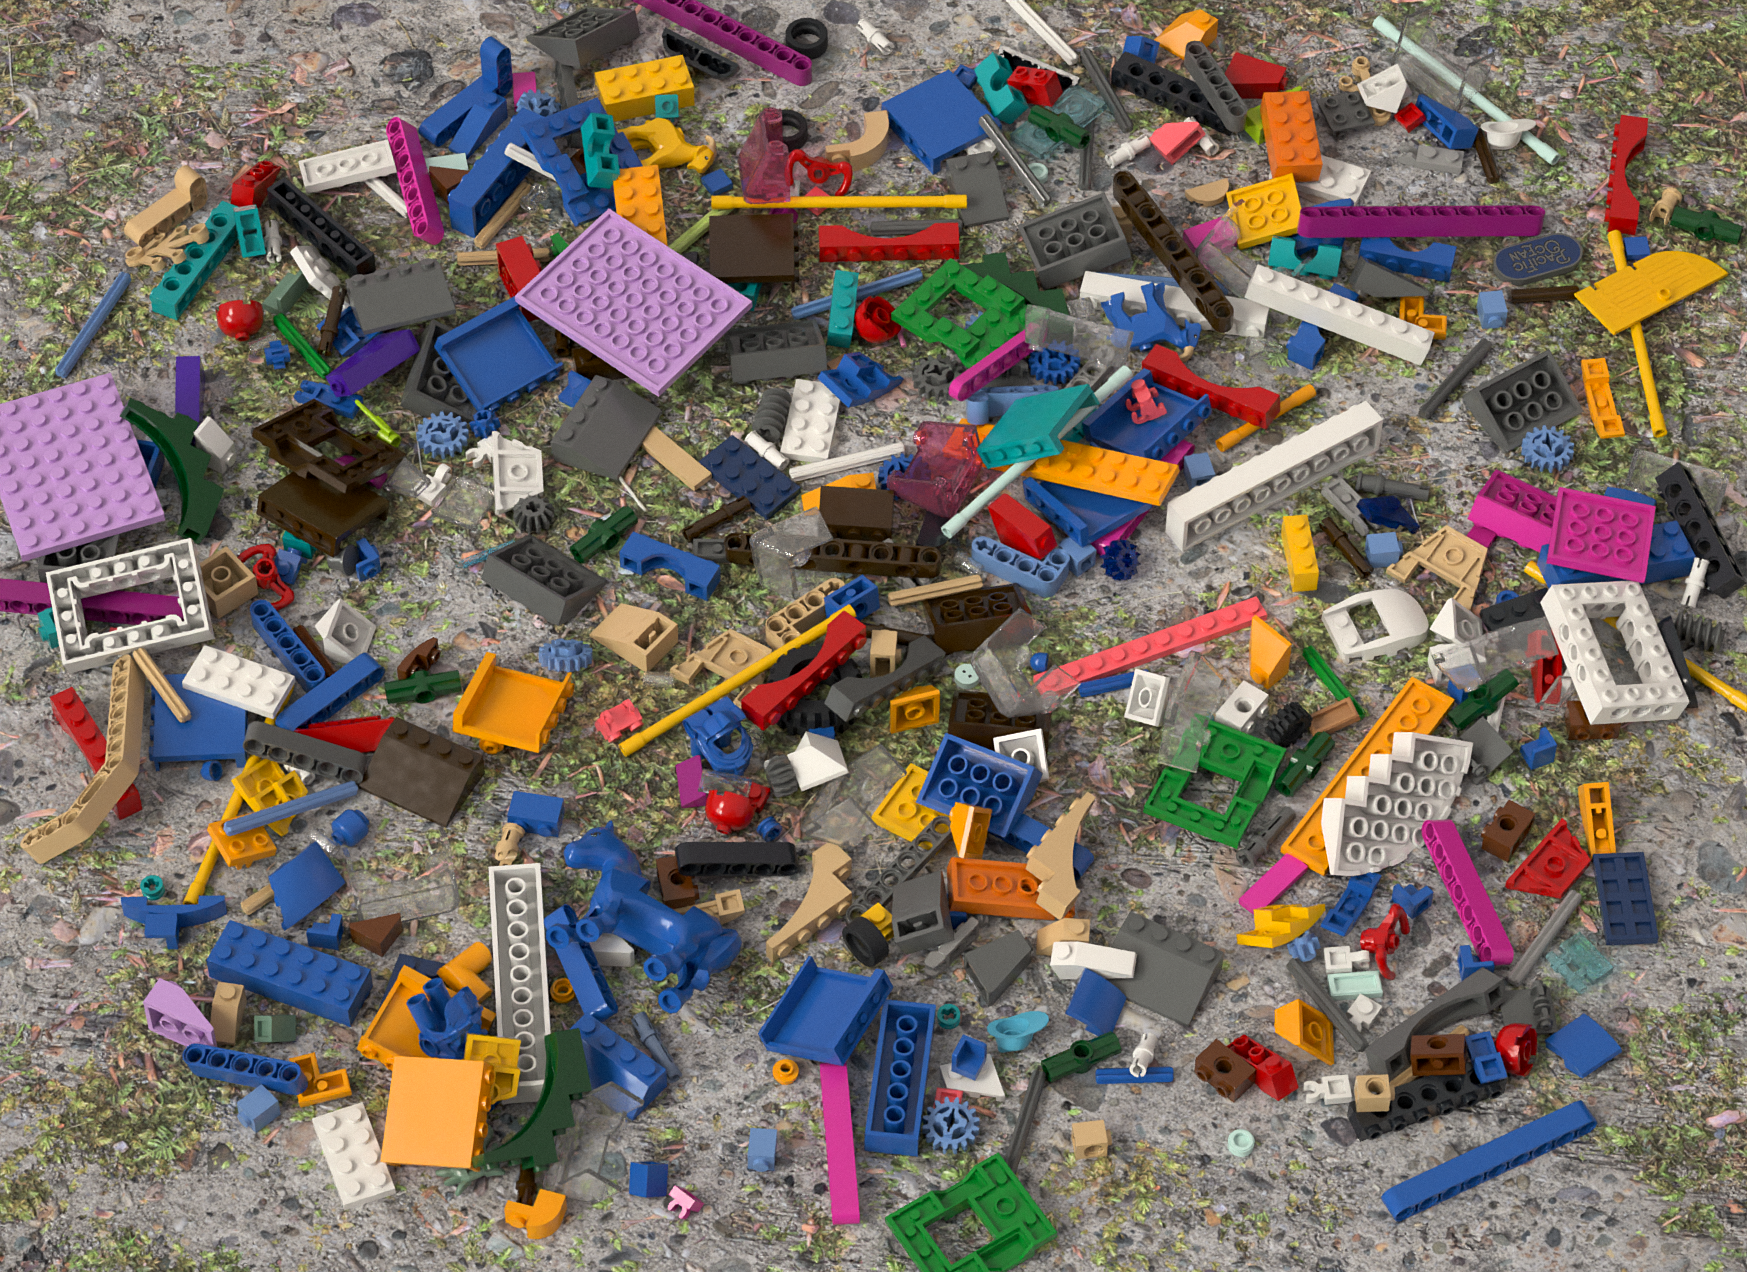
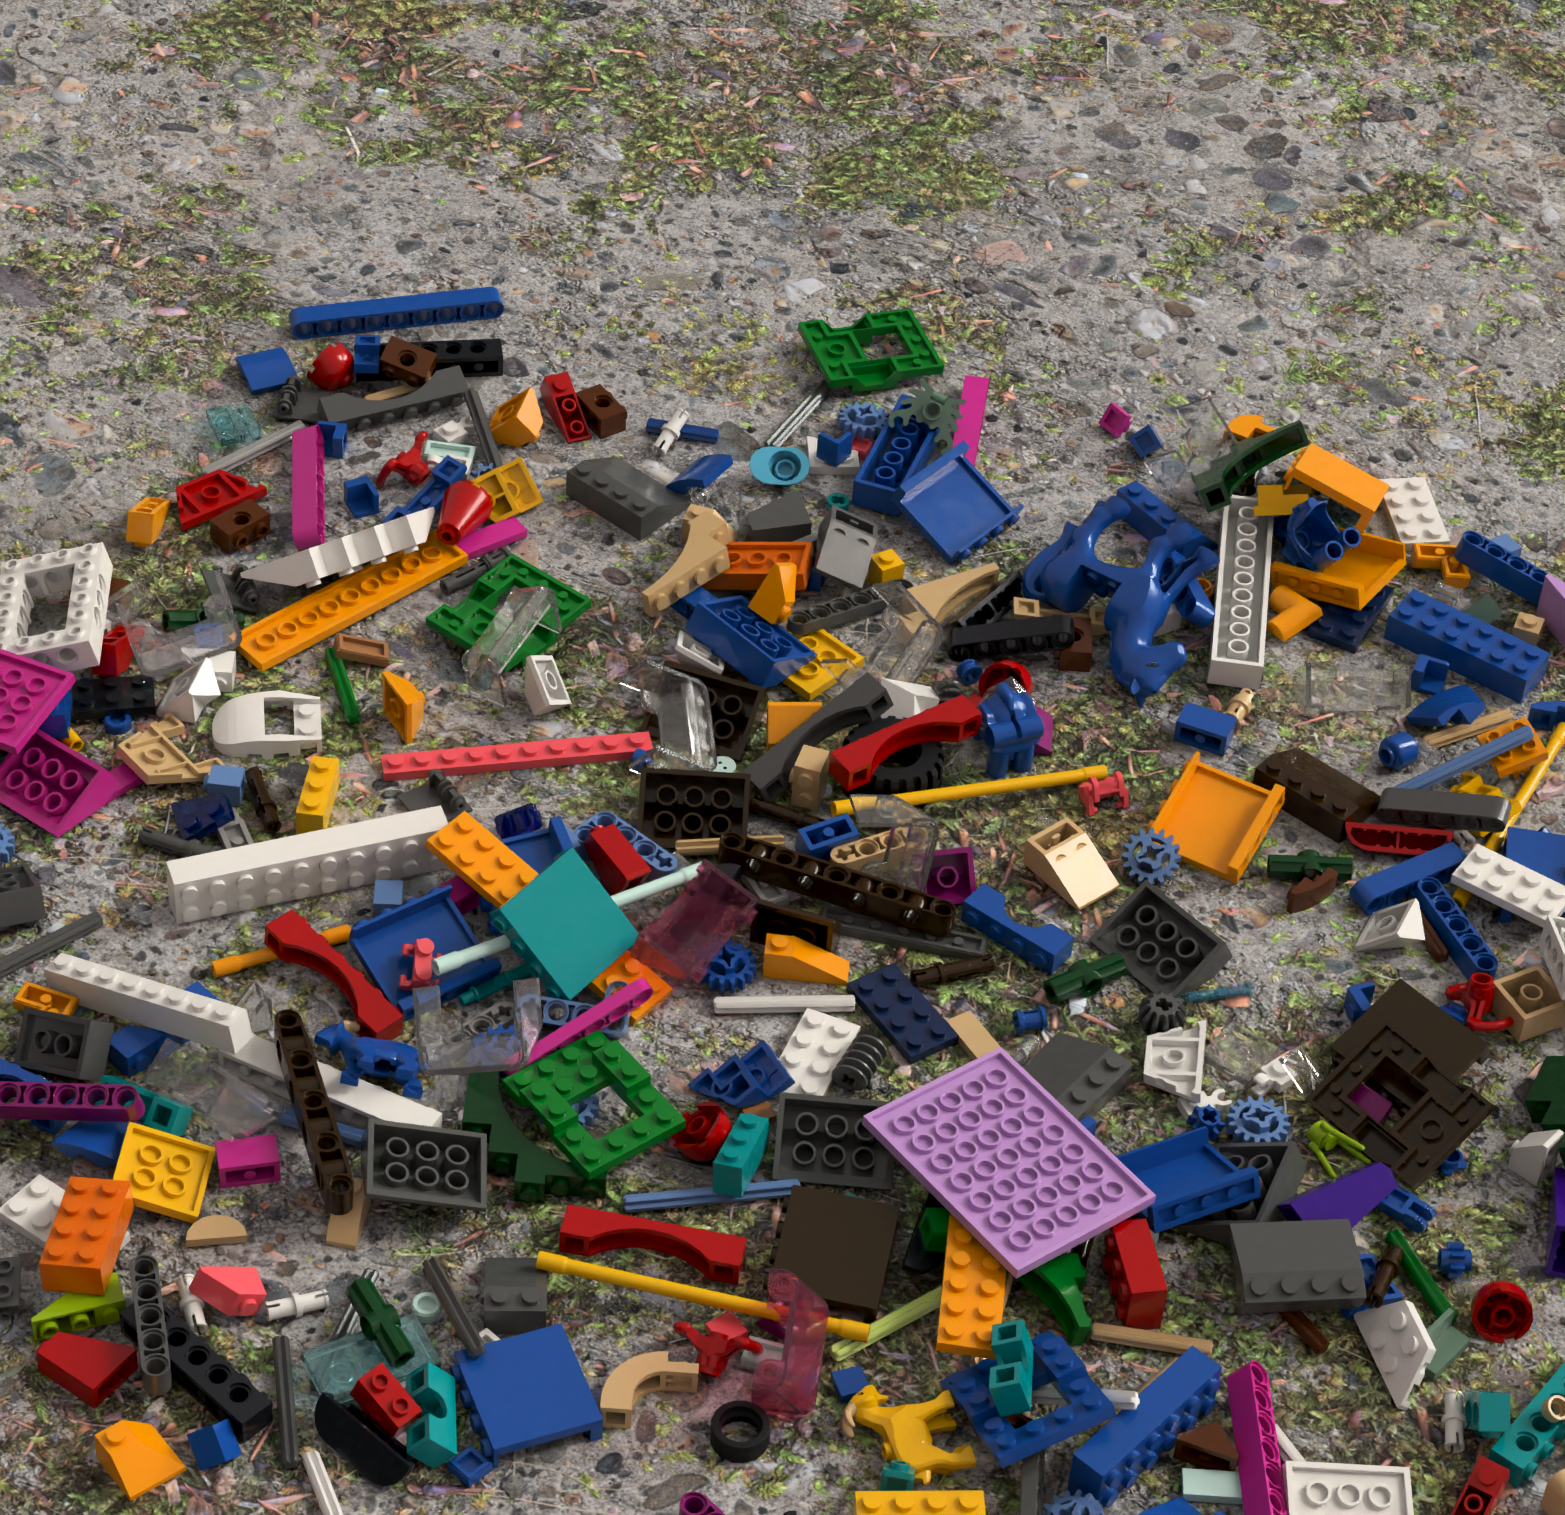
camera: 170 degrees left, 10 degrees down
(311, 1042) = (1447, 594): none -> clear bush
(320, 229) = (1391, 1407): black brick -> none
(377, 933) = (1378, 658): reddish brown slope -> none
(640, 460) = (1027, 1047): none -> clear pin
(642, 486) = (1030, 1020): none -> blue bush
(651, 1039) = (1128, 546): sand blue pin -> none
(726, 657) = (966, 826): tan wing -> none
(744, 605) = (952, 874): none -> magenta slope
(762, 1149) = (1038, 439): medium blue brick -> none
(767, 450) = (878, 1027): white pin -> none
(771, 907) = (991, 603): none -> black brick
(785, 1078) = (1005, 491): light orange plate -> none
(865, 941) = (907, 547): black tyre -> none
(878, 1097) = (932, 410): none -> sand green animal
(907, 226) = (625, 1265): dark grey axle -> none
(935, 376) = (658, 1062): dark grey gear -> none
(1072, 958) = (689, 490): white slope -> none
(1090, 1139) = (741, 390): tan brick -> none
(1092, 1050) = (728, 443): dark green piece -> none
(1106, 684) = (568, 730): blue axle -> none
(1201, 582) = (436, 793): none -> dark grey hinge
(1241, 1143) = (606, 371): light aqua tile -> none
(1244, 699) = (445, 674): white brick -> none
(1288, 724) = (417, 649): black tyre -> none
(1304, 874) = (462, 511): none -> red cone
(1305, 764) = (406, 619): dark green piece -> none
(1332, 1088) = (510, 383): white plate -> none
(1370, 1102) = (482, 344): tan brick -> none
(1540, 751) = (170, 581): blue panel -> none
(1625, 898) = (160, 460): dark blue plate -> none

